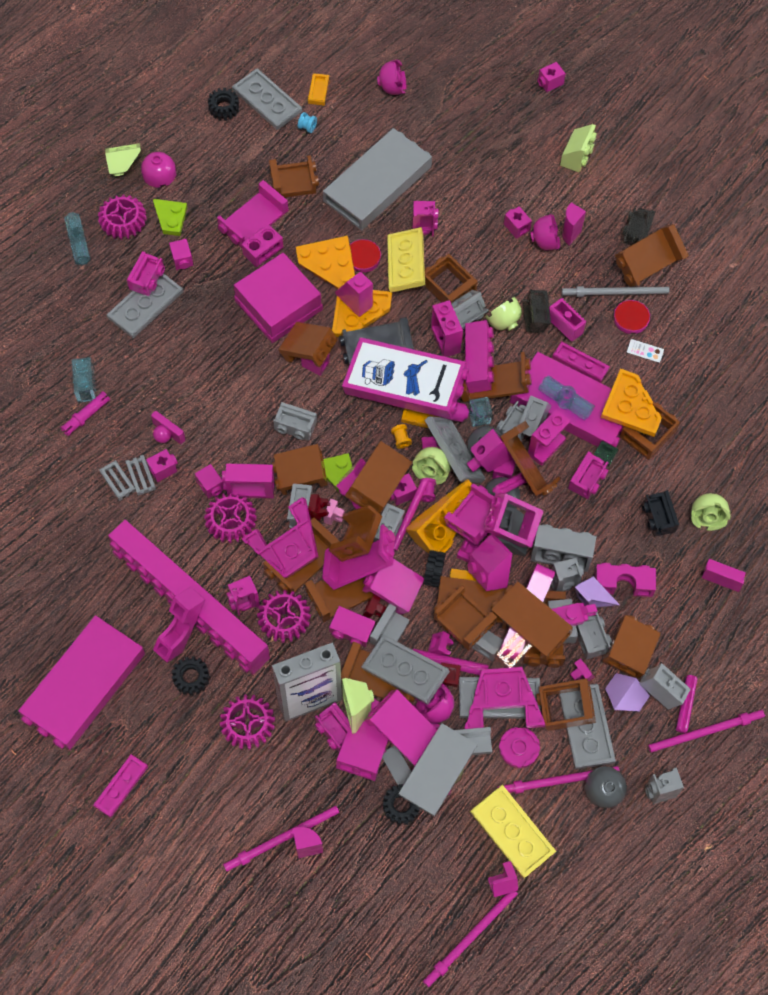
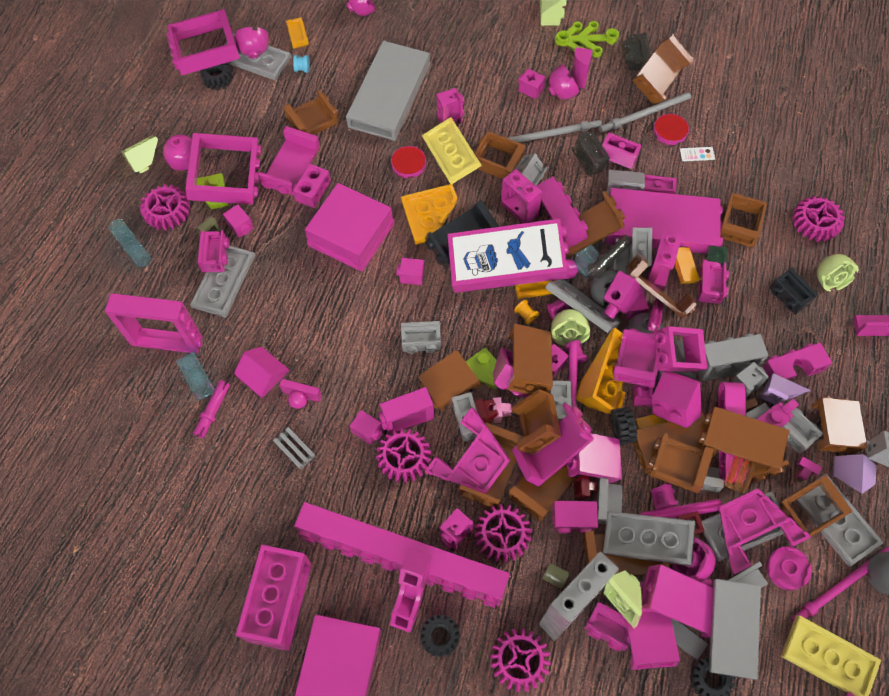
camera: 20 degrees left, 0 degrees up
(46, 299) = (126, 308): none -> dark pink window
(68, 587) = (274, 598): none -> dark pink brick
(125, 492) = (286, 472): light grey tile -> none
(141, 396) = (260, 370): none -> dark pink slope
(153, 249) = (208, 225): none -> olive brick
(157, 469) = (309, 436): dark pink brick -> none
(175, 223) = (222, 194): none -> dark pink window
(223, 49) = (198, 26): none -> dark pink window
(268, 86) = (251, 42): none -> dark pink cylinder
(308, 342) = (399, 257): dark orange panel -> none
(328, 260) = (381, 177): light orange plate -> none
(357, 294) = (424, 194): dark pink slope -> none
(492, 416) = (605, 260): none -> clear smoke pin
(505, 315) = (565, 166): yellowish green cylinder -> none
(547, 282) = (582, 126): none -> light grey bar
(557, 350) = (625, 180): none -> light grey panel
(557, 392) = (653, 217): clear light blue piece -> none
(571, 450) = (685, 266): none -> light orange tile
(595, 194) = (565, 38): none -> lime plant
(631, 405) = (720, 203): light orange plate -> none
(721, 446) = (818, 218): none -> dark pink gear

